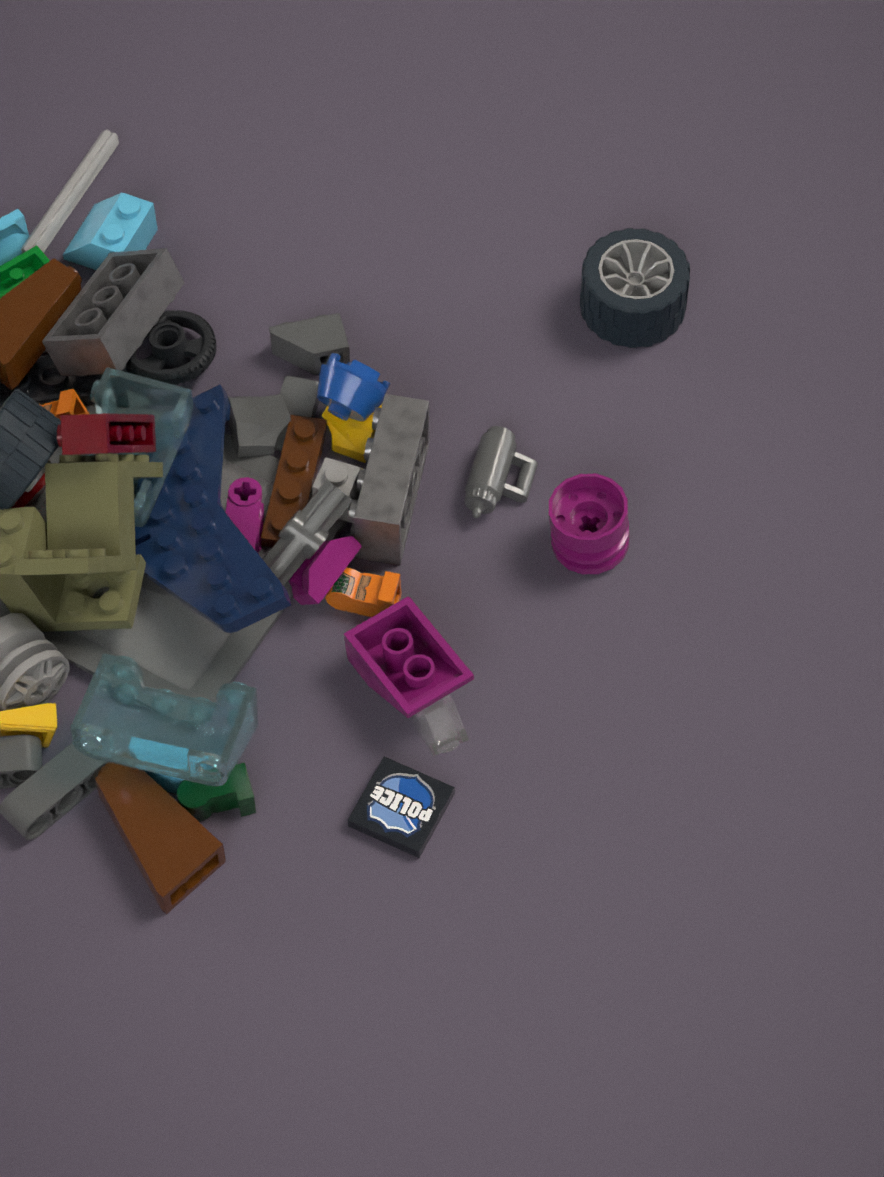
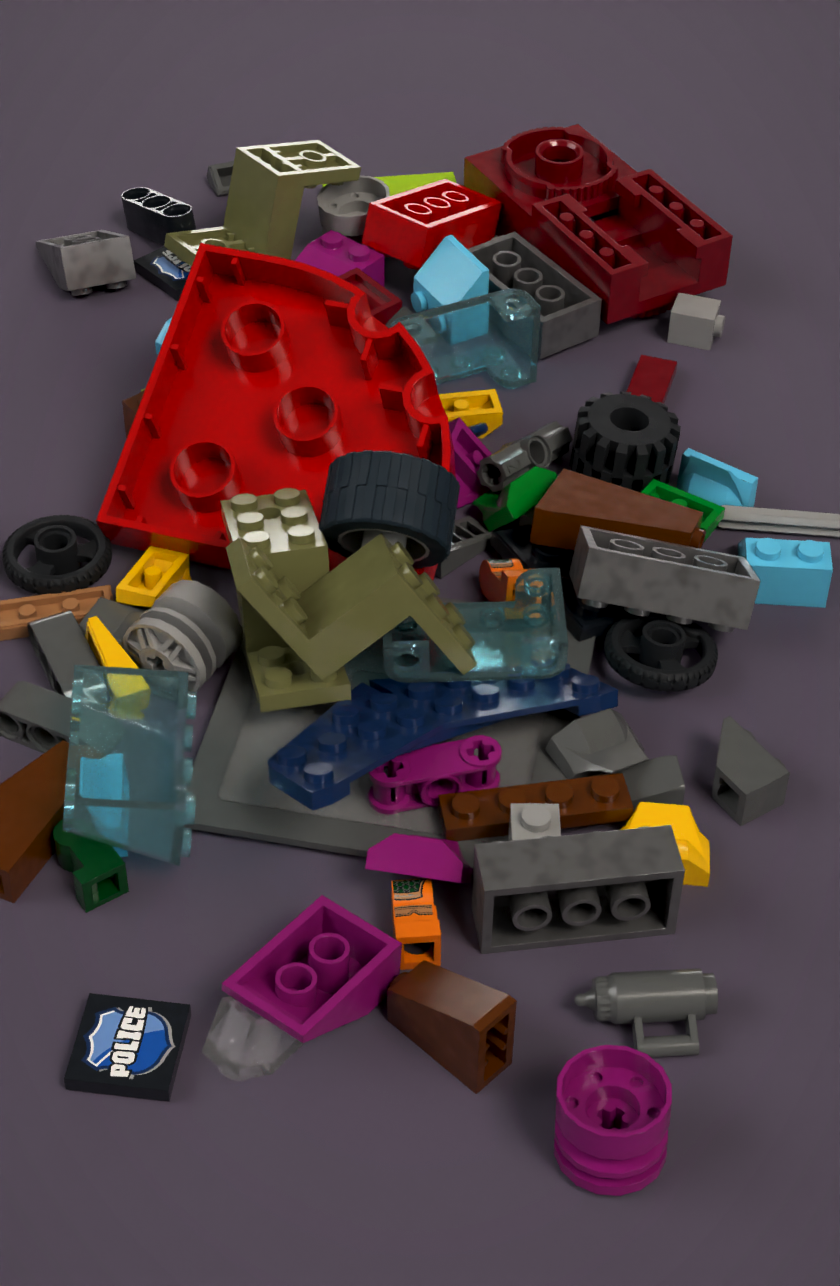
camera: 70 degrees right, 15 degrees down
(106, 434) = (455, 579): dark red brick -> none
(306, 531) = (446, 816): dark grey piece -> none
(350, 388) = (675, 797): blue cone -> none
(472, 589) = (455, 1021): none -> reddish brown slope

